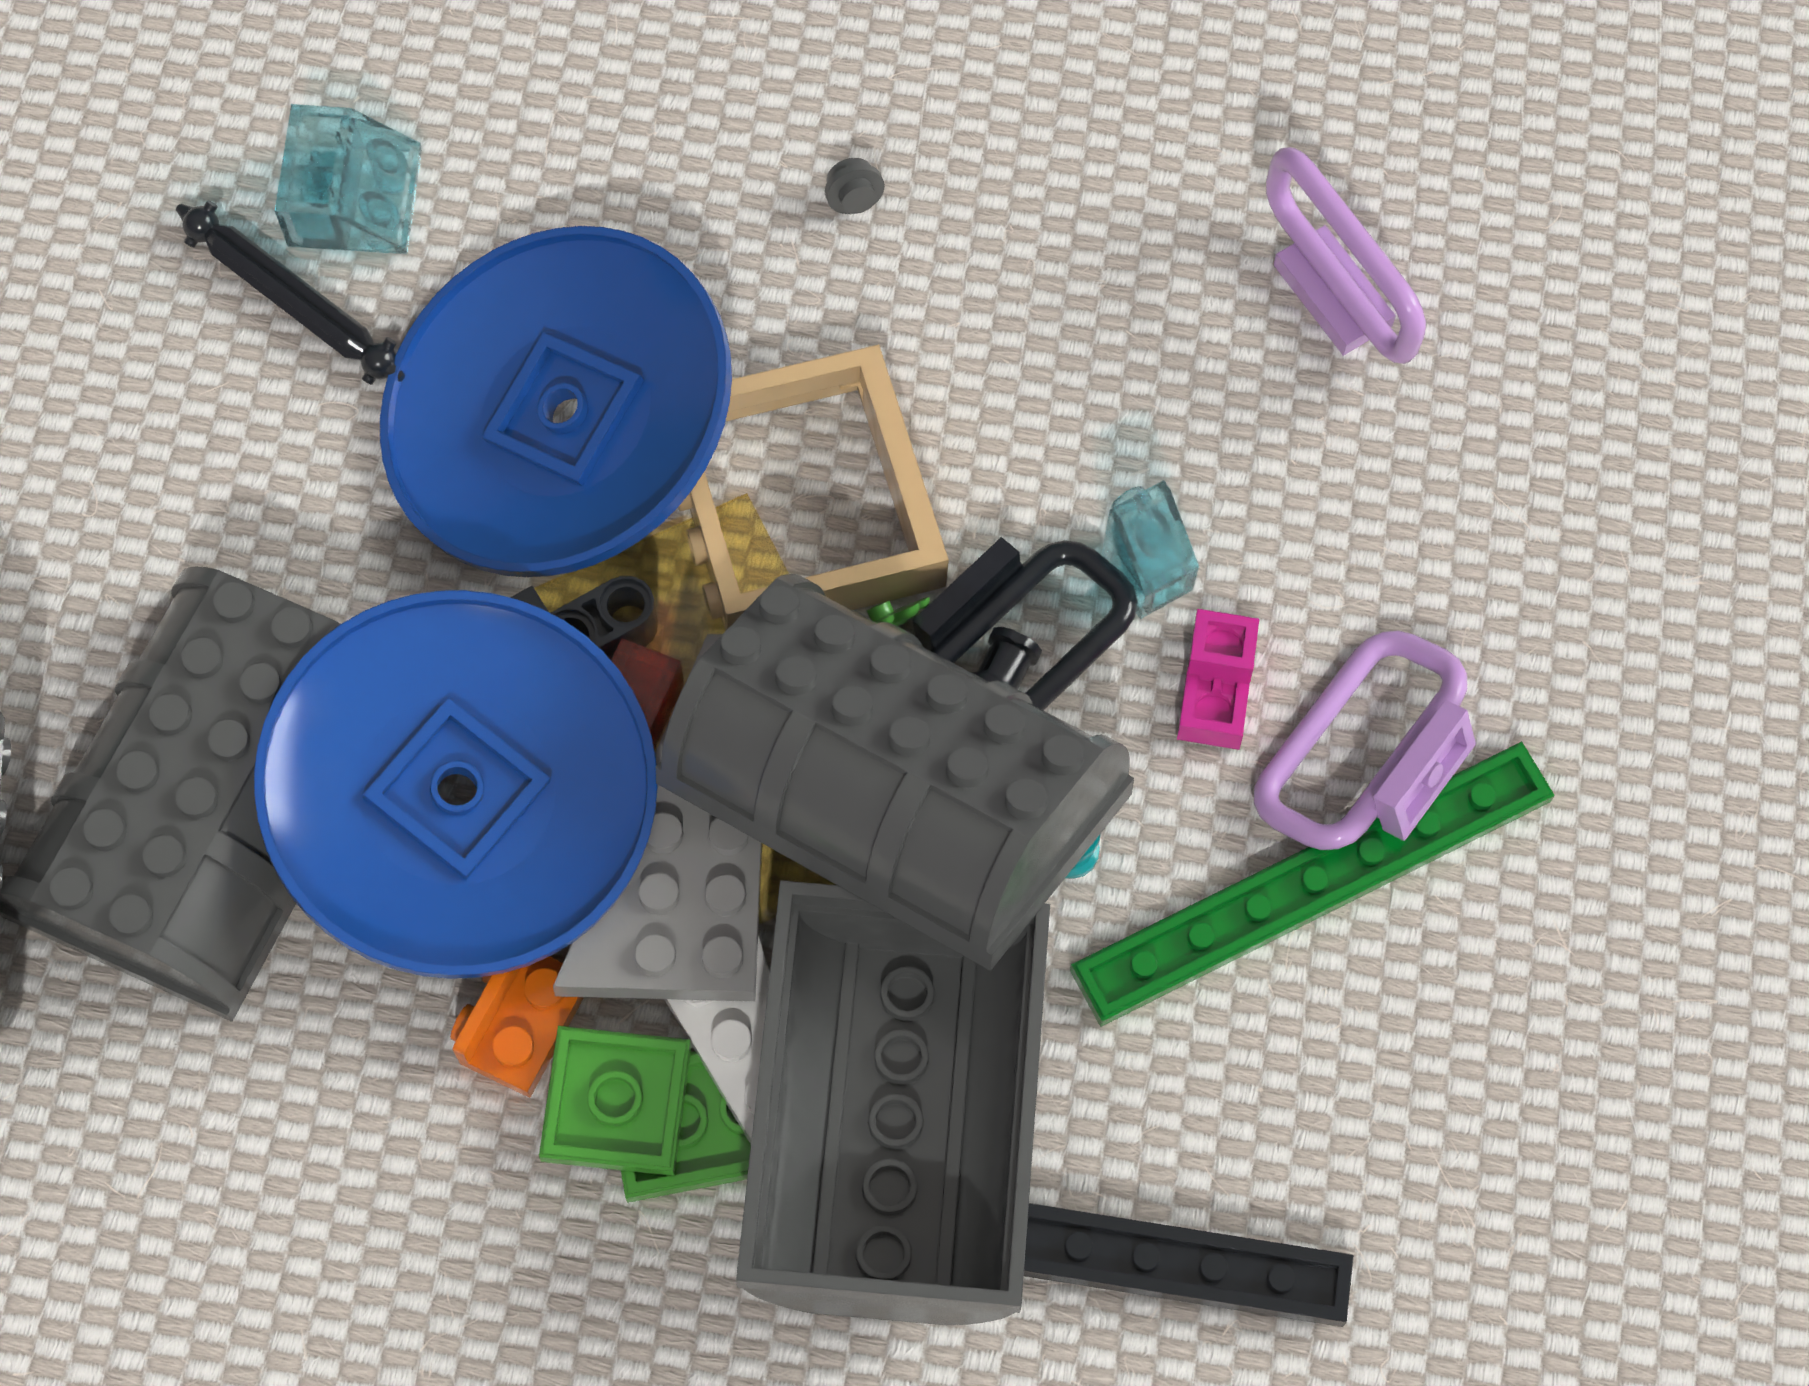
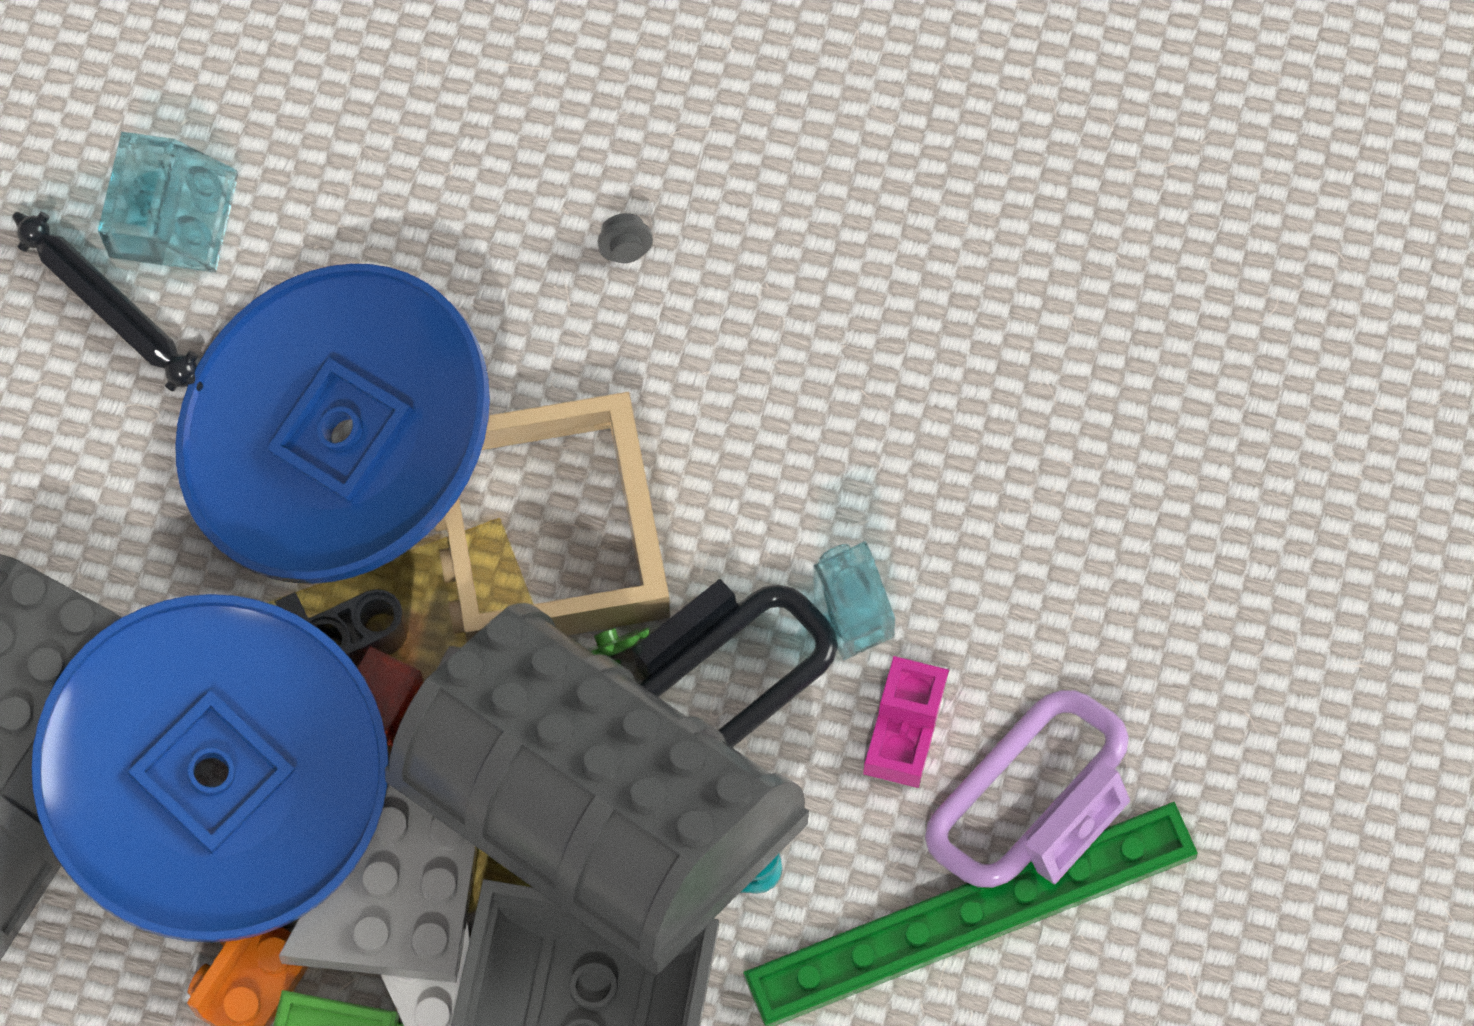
camera: 10 degrees right, 0 degrees up
(1008, 657) = (713, 694): black bush -> none
(1328, 277) = (1054, 349): lavender bar -> none

